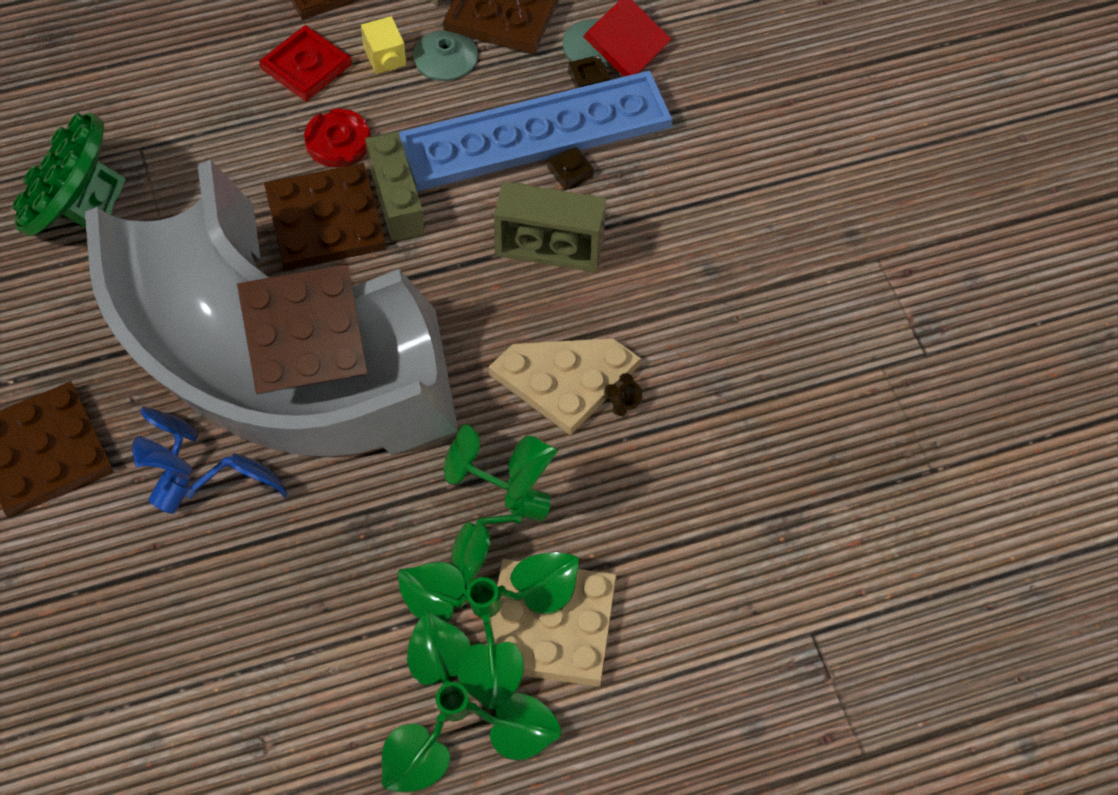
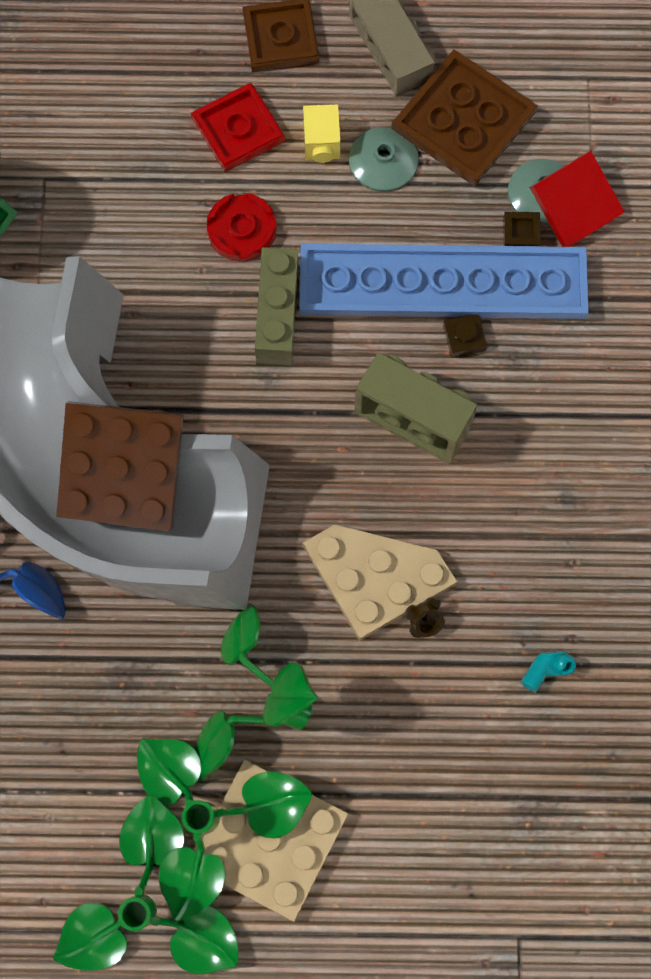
camera: 20 degrees right, 15 degrees up
(324, 216) = (198, 316): reddish brown plate -> none
(749, 402) = (548, 665): none -> teal arm

